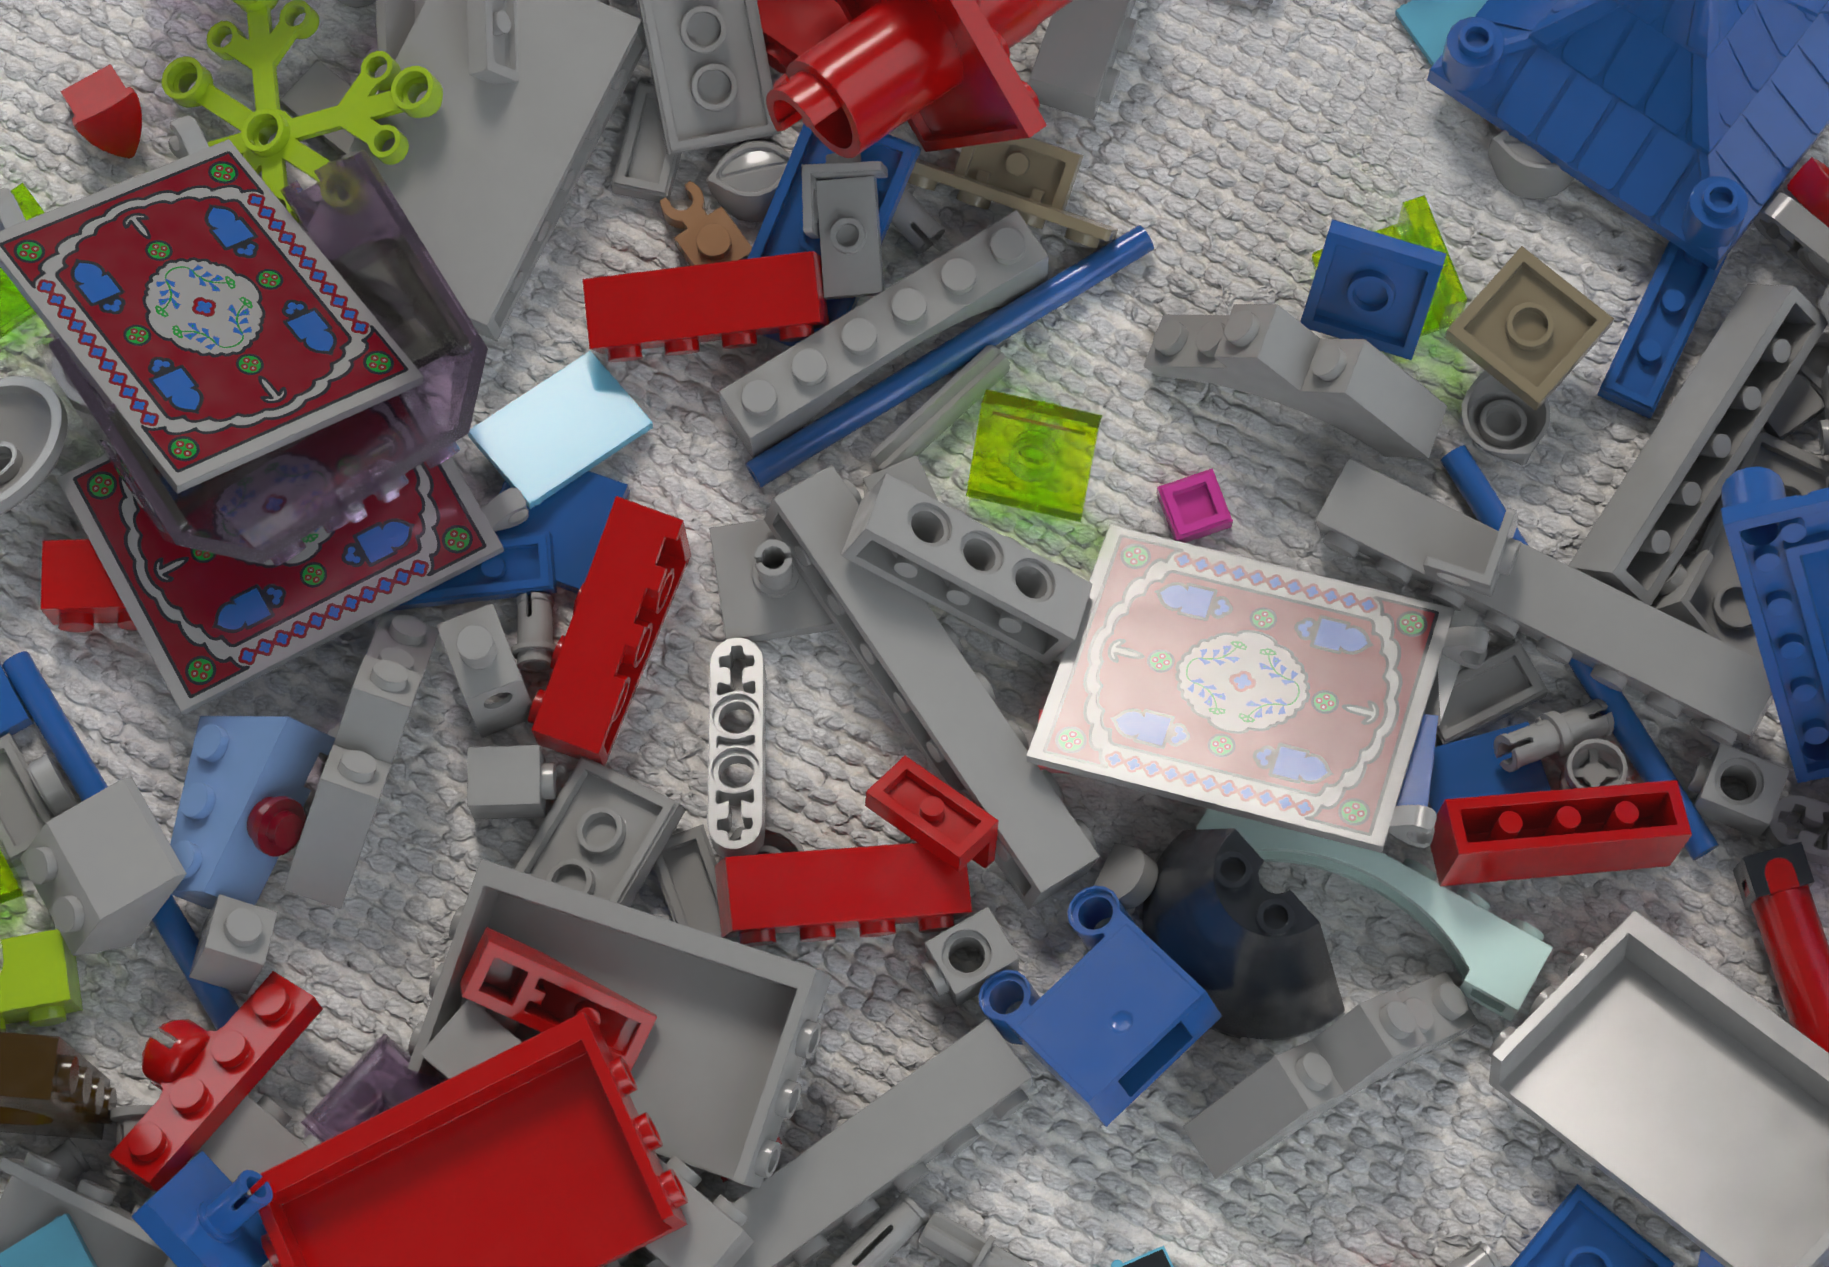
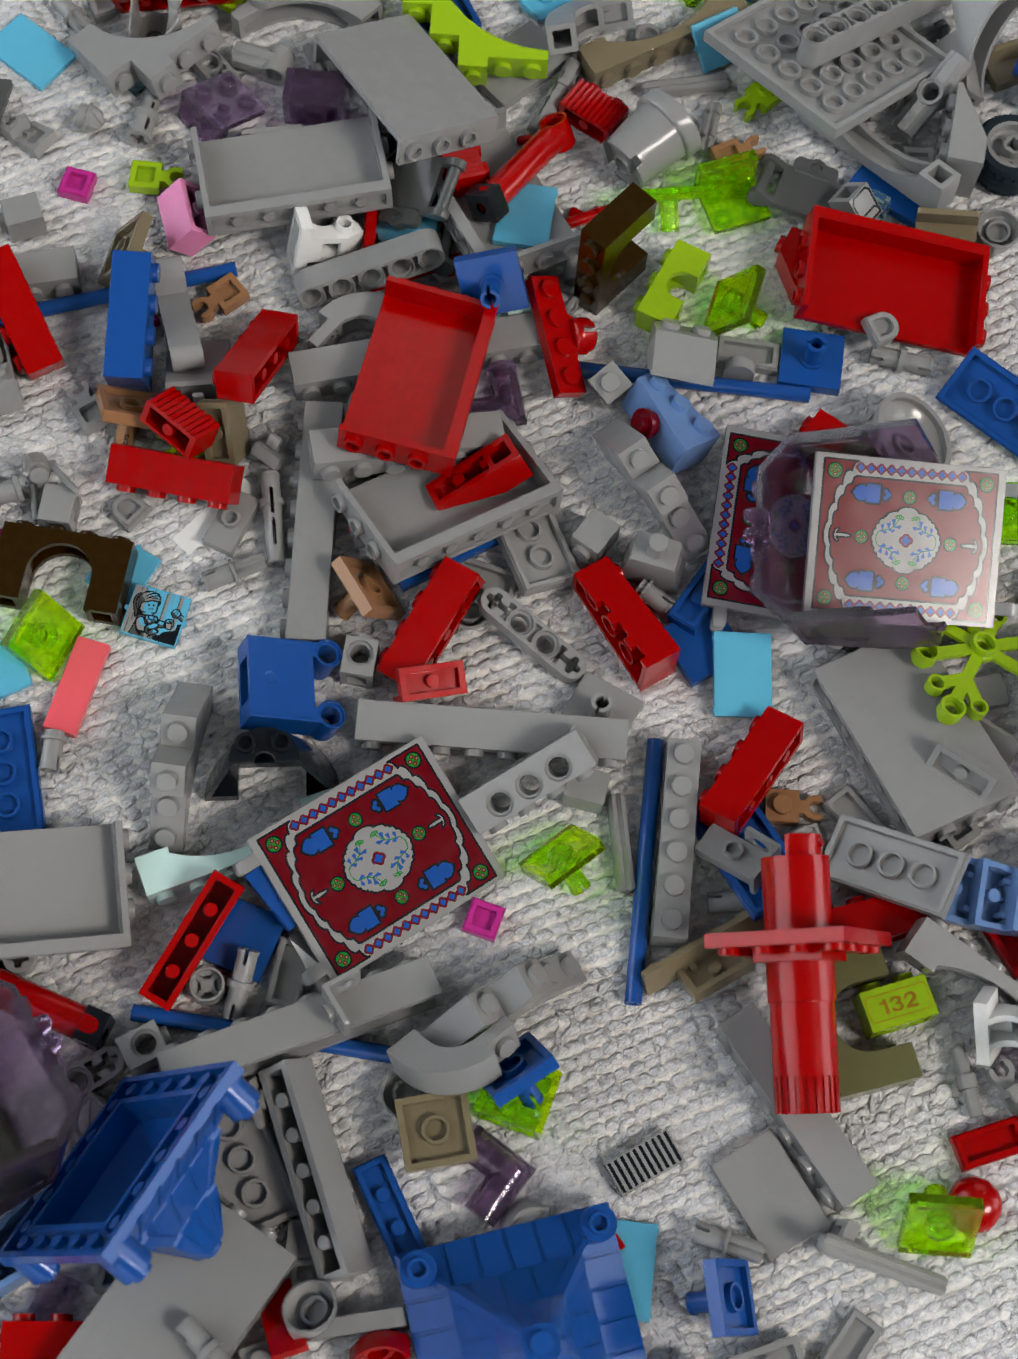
camera: 120 degrees right, 5 degrees down
(863, 1026) = (366, 590): none -> medium nougat tile
(1129, 874) = (339, 751): light grey tile -> none
(1336, 78) = (644, 1162): none -> tile
(1449, 353) = (456, 1068): none -> light grey arch
(1498, 224) = (504, 1177): none -> clear purple brick

